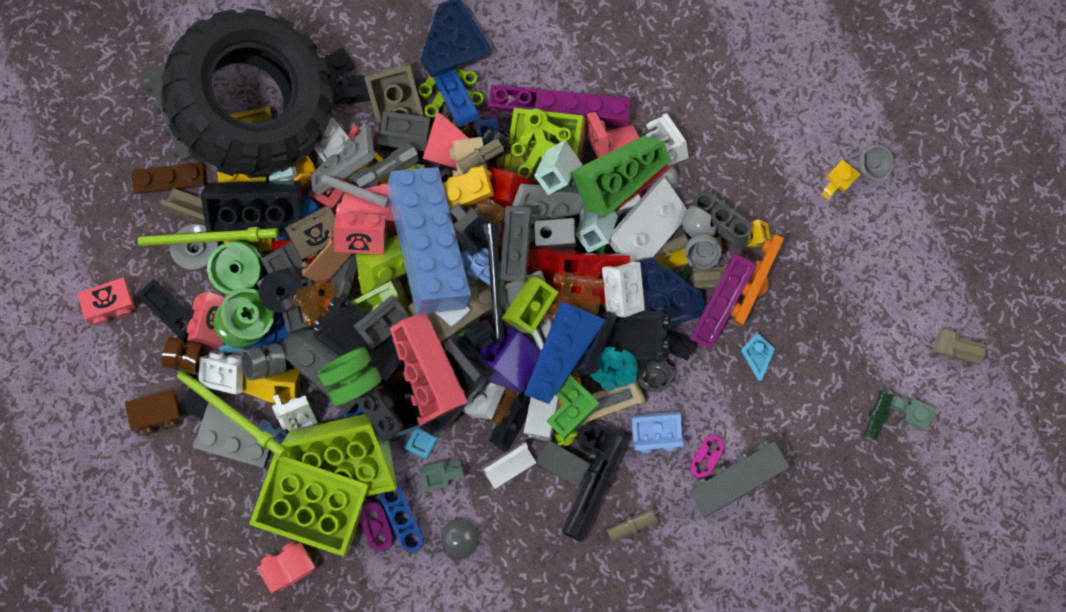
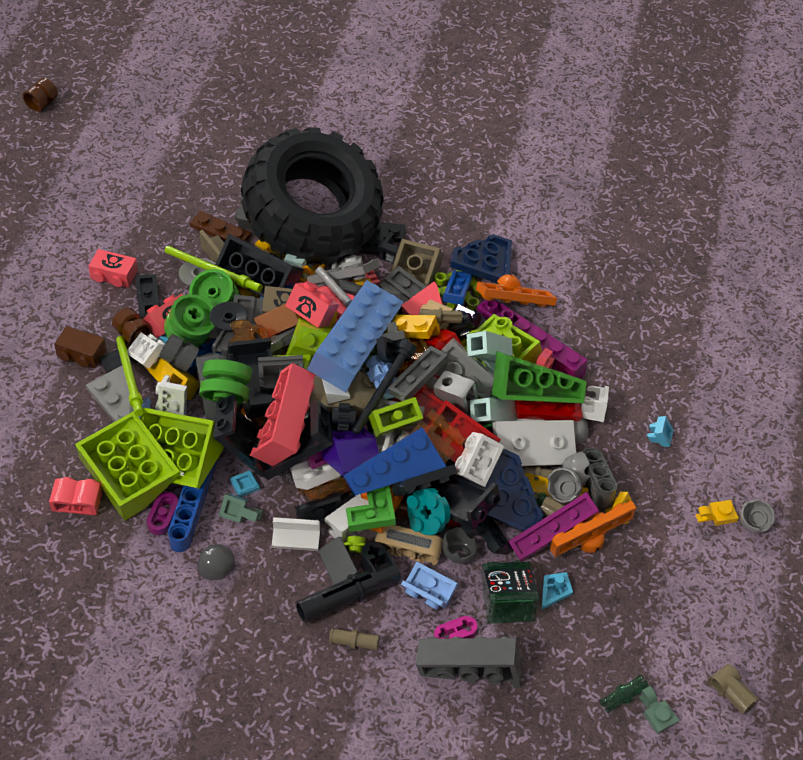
camera: 35 degrees right, 25 degrees down
(508, 65) = (511, 290): none -> orange plate
(725, 388) = (509, 592): none -> clear green slope
(742, 127) = (662, 432): none -> medium azure tile

